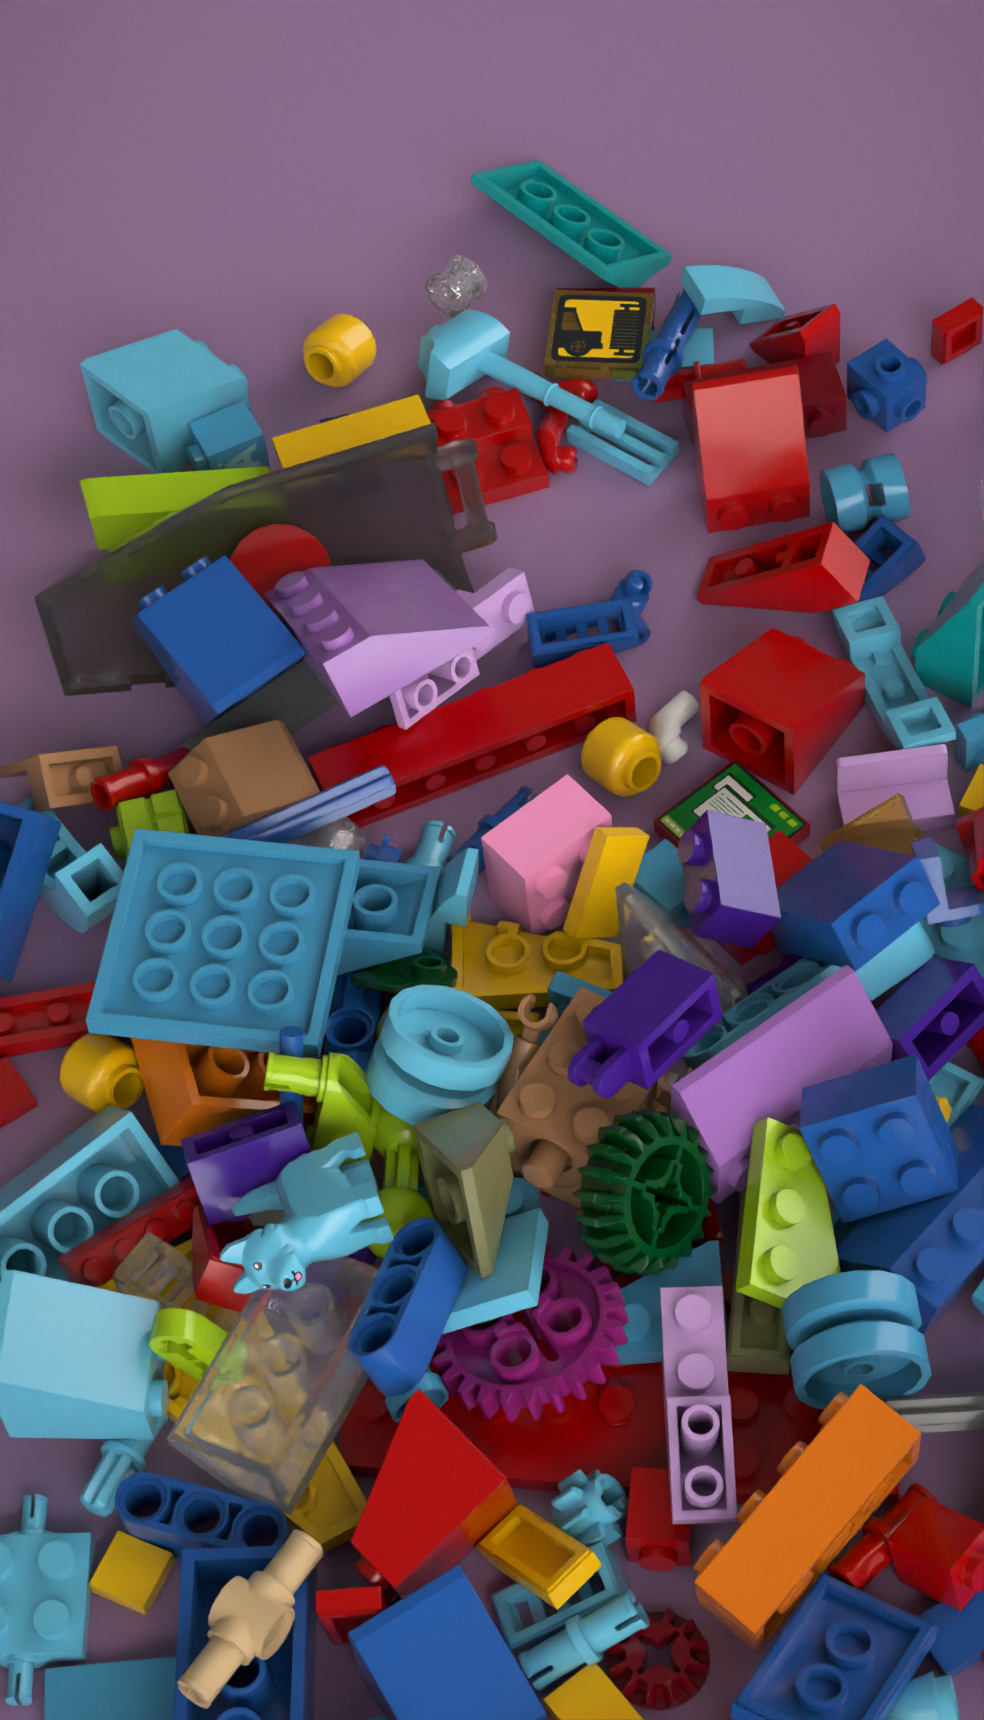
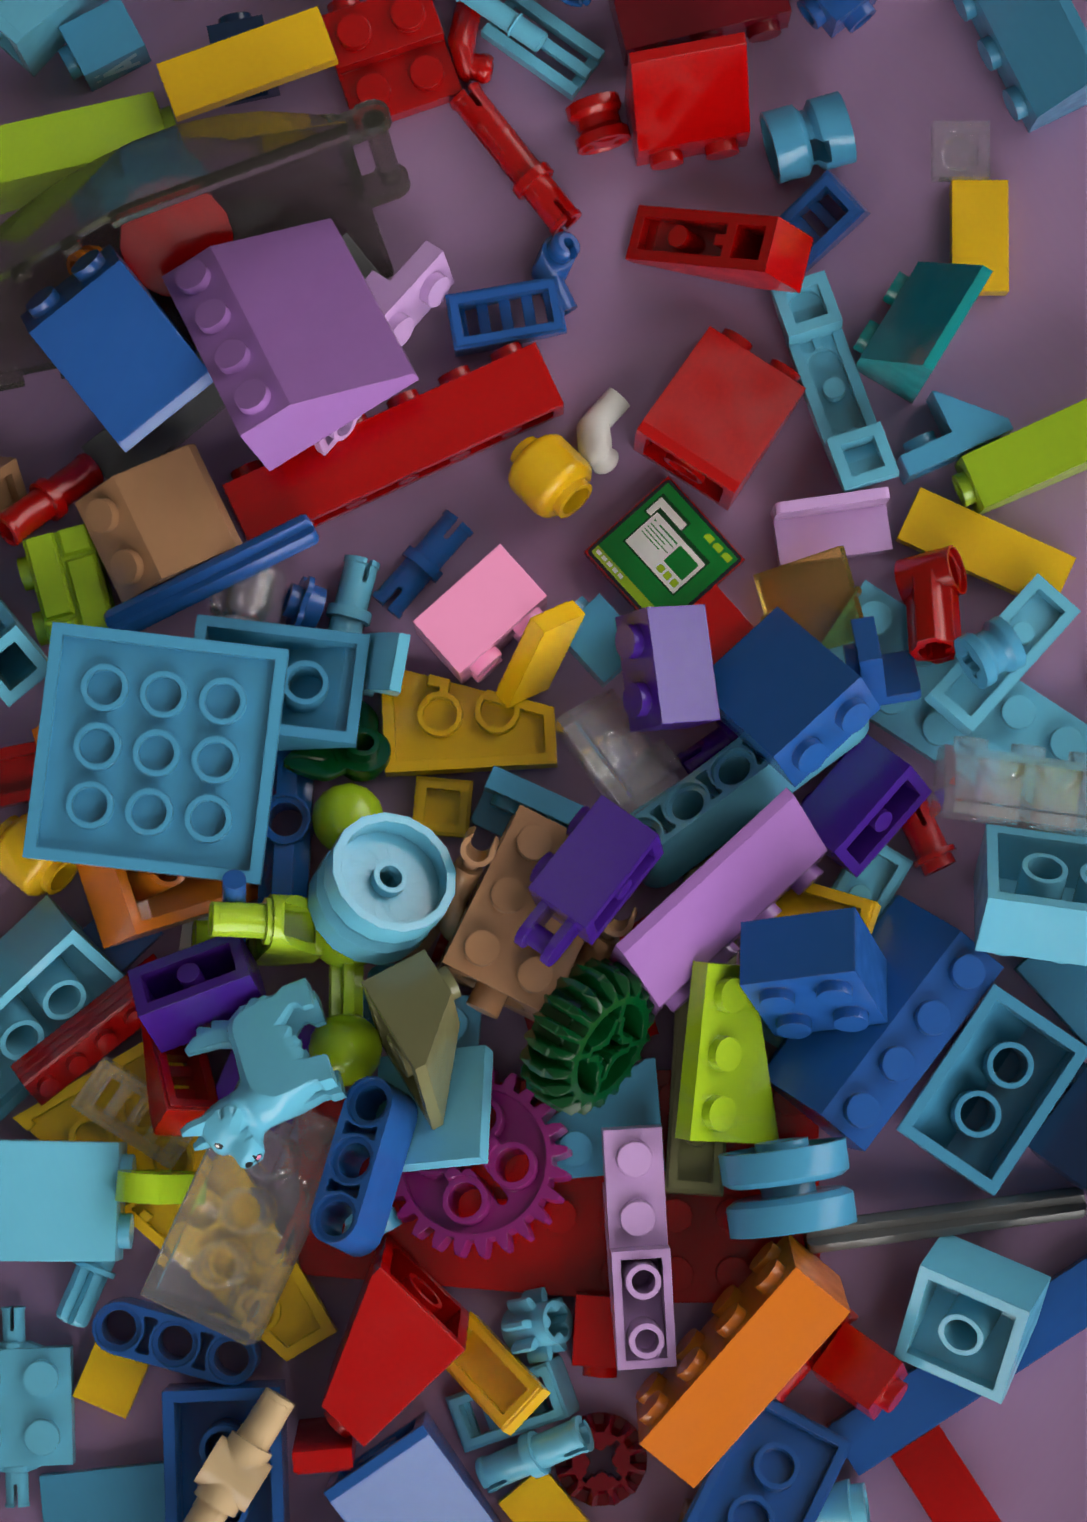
camera: 10 degrees left, 30 degrees up
(608, 533) = (530, 177): none -> red pin
(671, 491) = (598, 123): none -> red wheel

